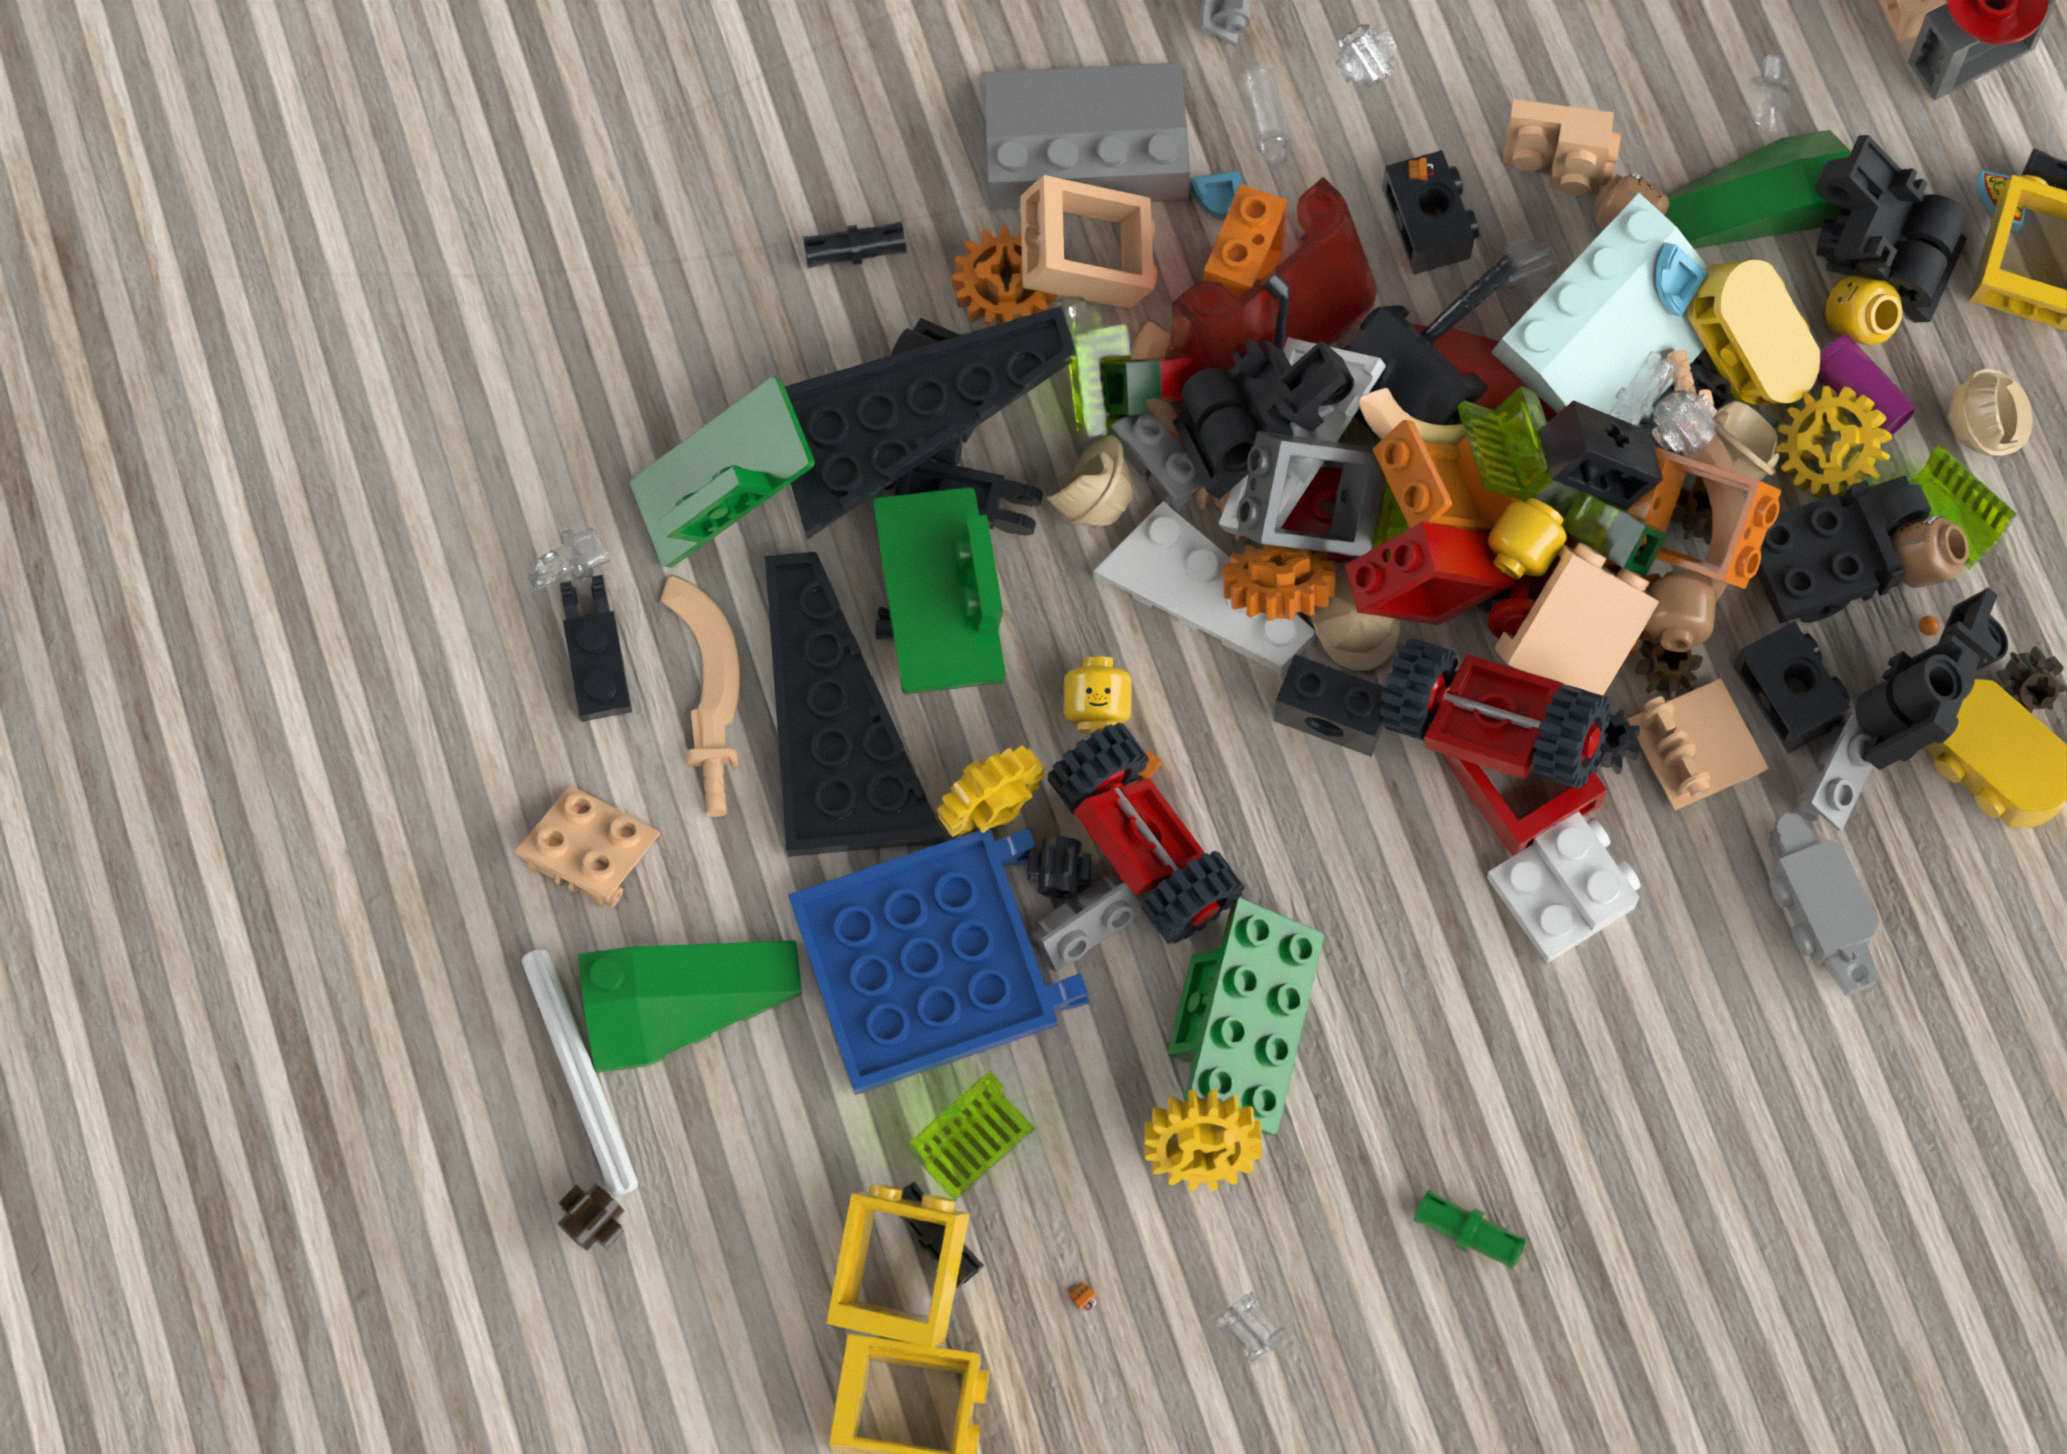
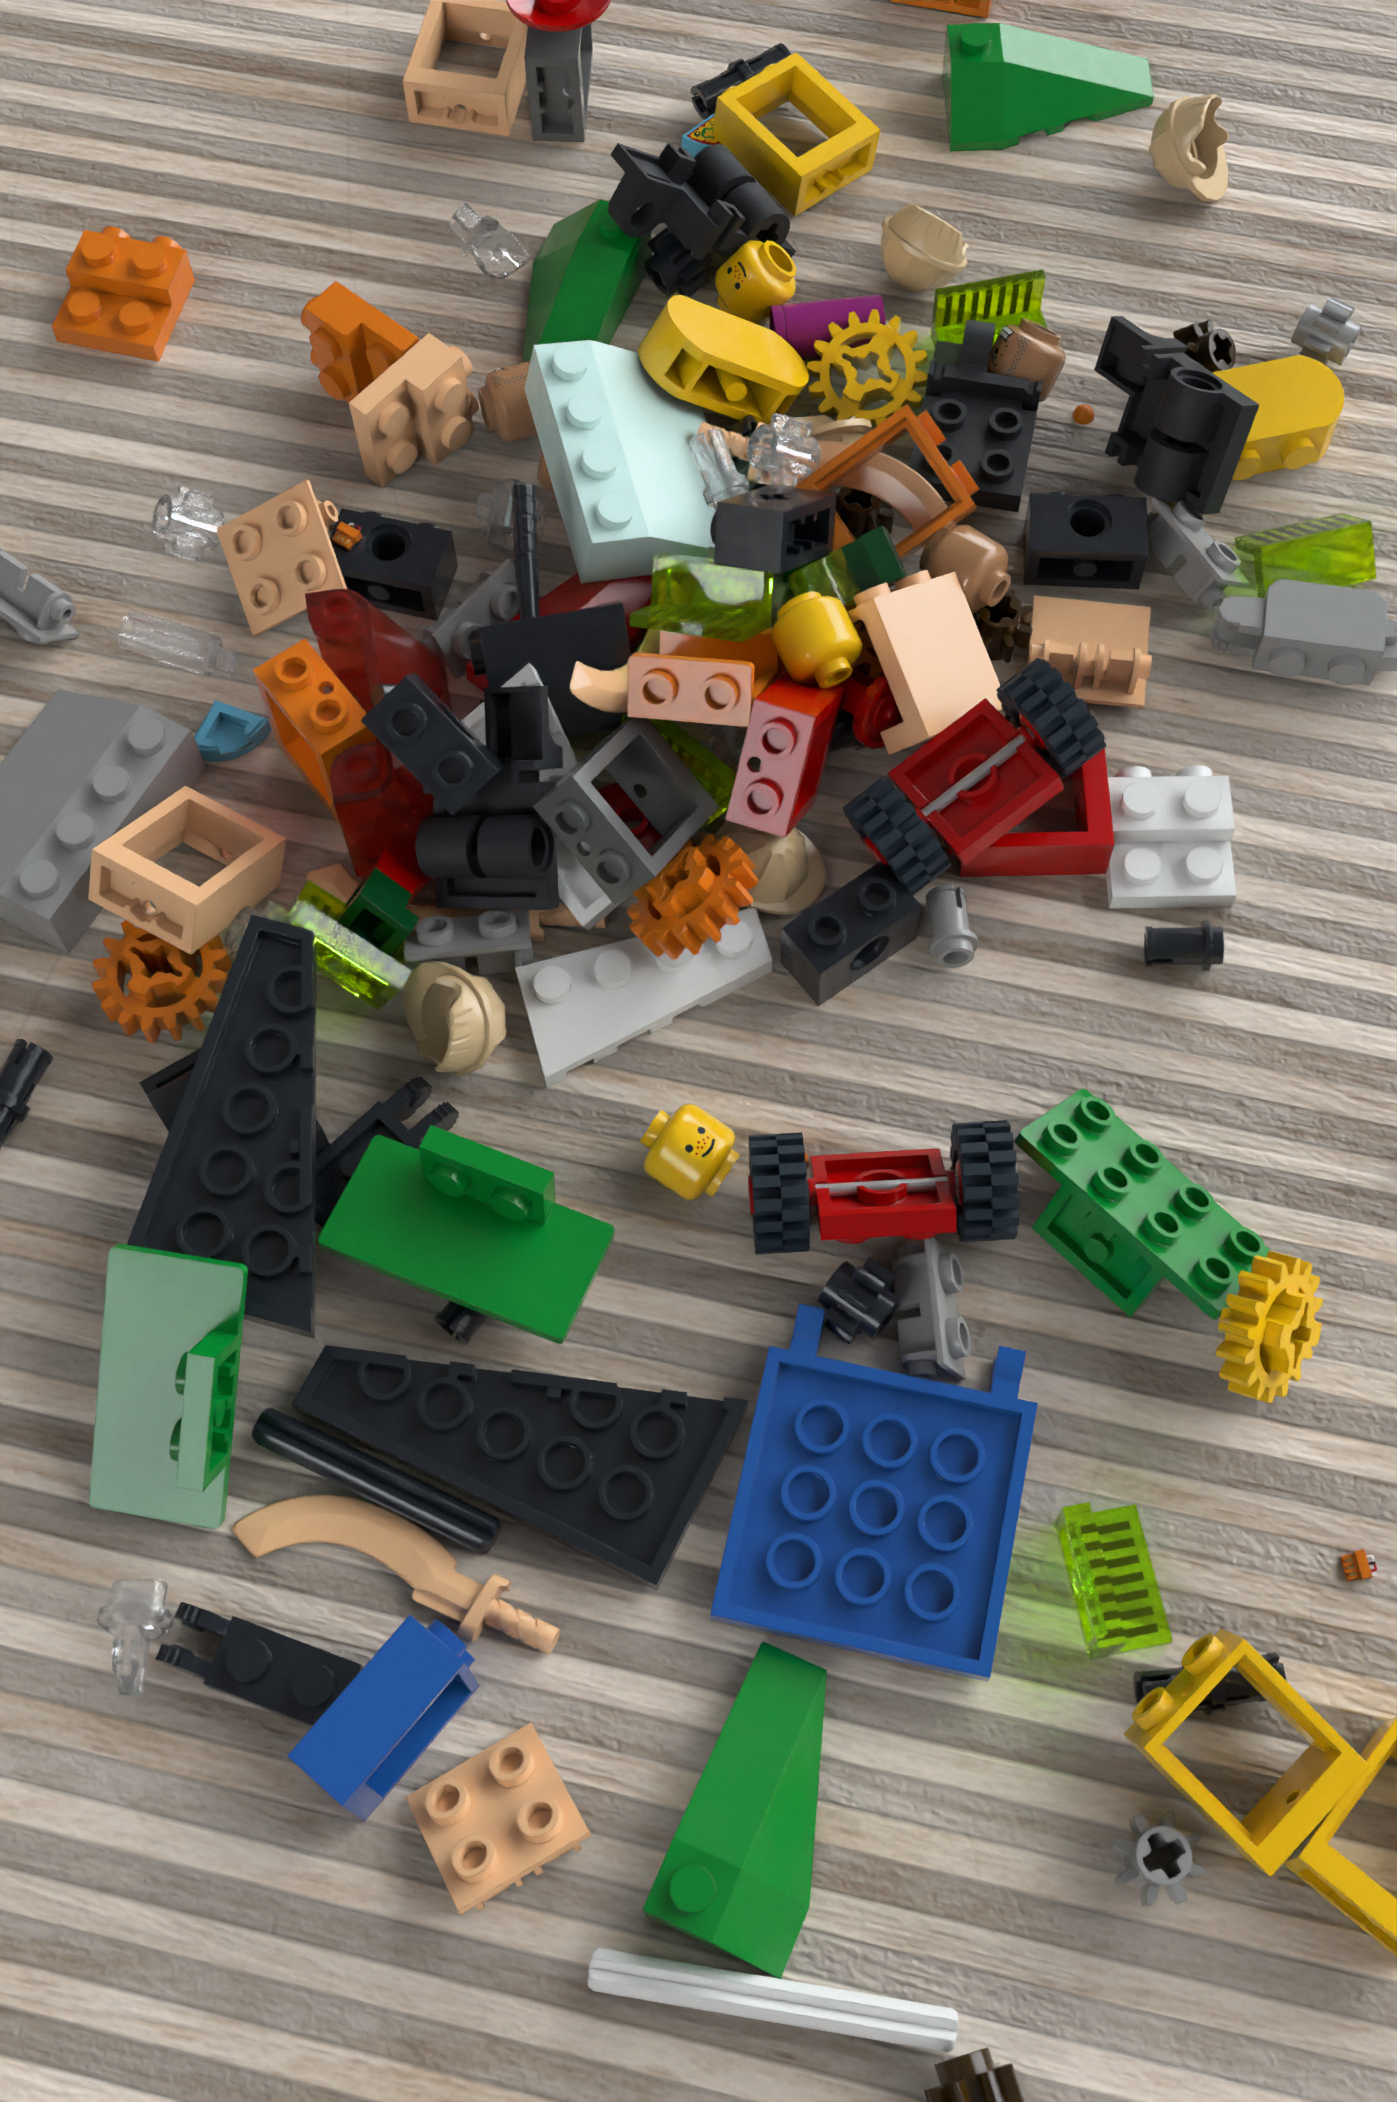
camera: 60 degrees left, 5 degrees down
(602, 737) = (387, 1716): none -> blue window
(751, 641) = (376, 1480): none -> black axle
(798, 1241) = (1176, 1869): none -> light grey gear
(991, 792) = (738, 1317): yellow gear -> none
(1251, 336) = (432, 743): none -> black brick
(1378, 137) = (281, 555): none -> light nougat hinge
(1388, 773) = (952, 940): none -> light grey pin
(1422, 299) = (488, 600): none -> light grey hinge
(1487, 951) = (1184, 946): none -> black pin
(1585, 61) = (351, 341): none -> orange plate
(1677, 278) = (638, 374): medium azure tile -> none
(1899, 860) = (1320, 551): none -> clear neon green panel

